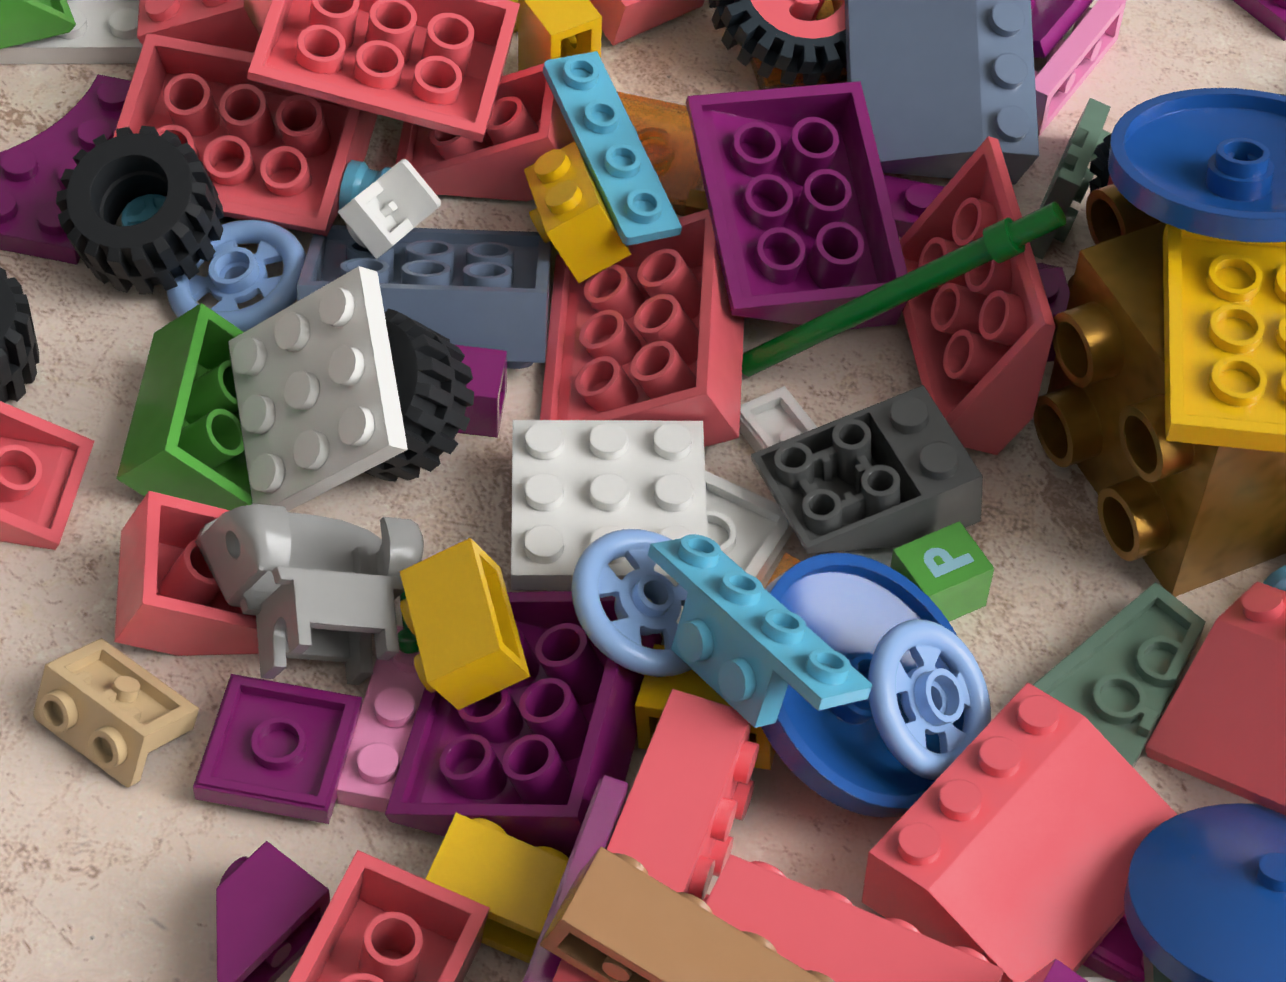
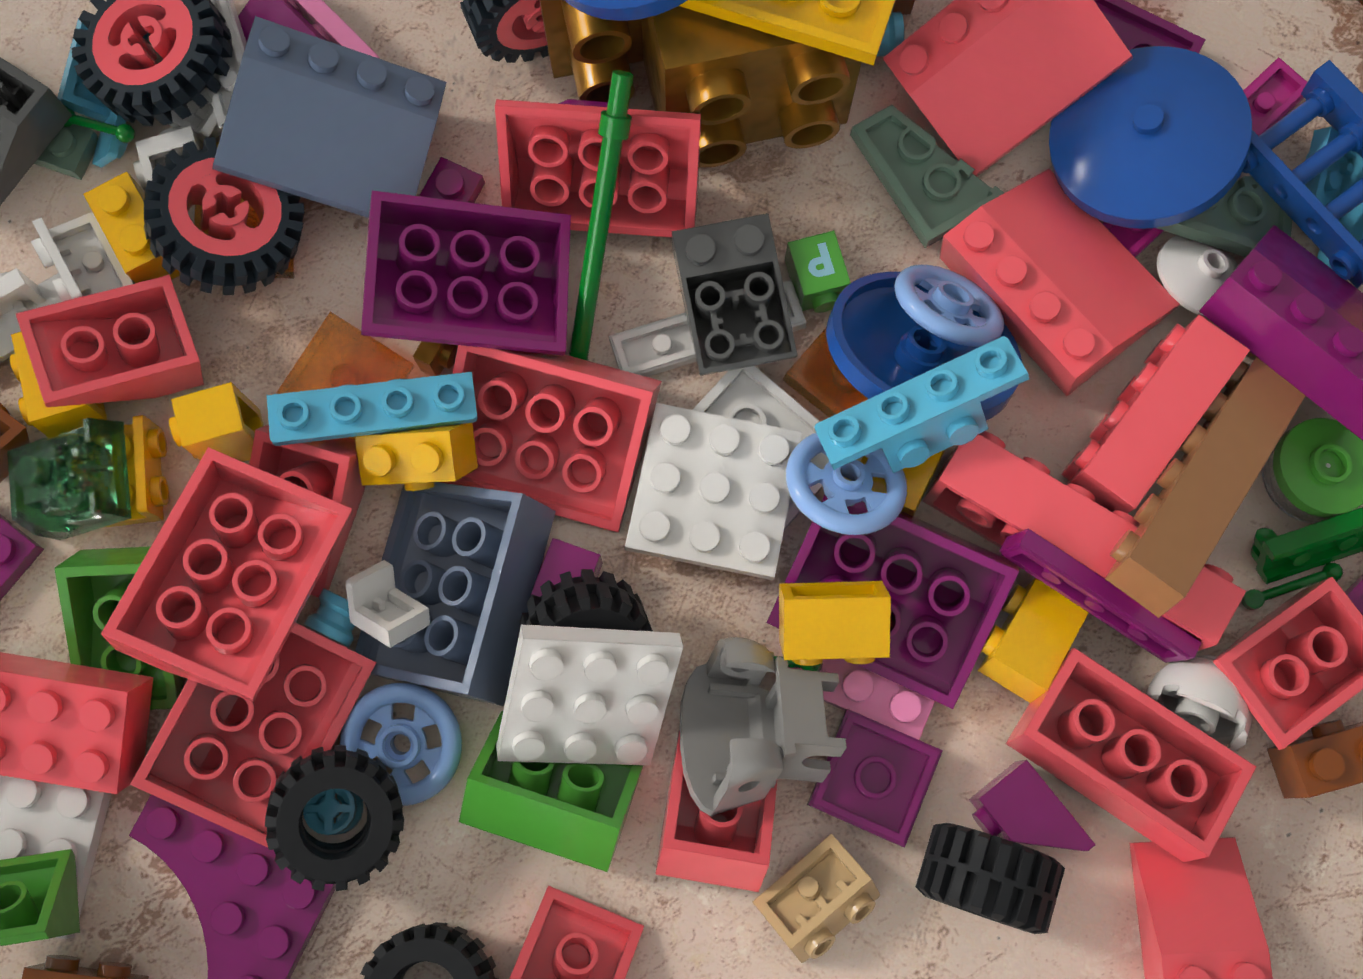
camera: 75 degrees left, 25 degrees up
(161, 856) = (990, 877): none -> black tyre
(1072, 173) = (469, 68): sand green wing -> none

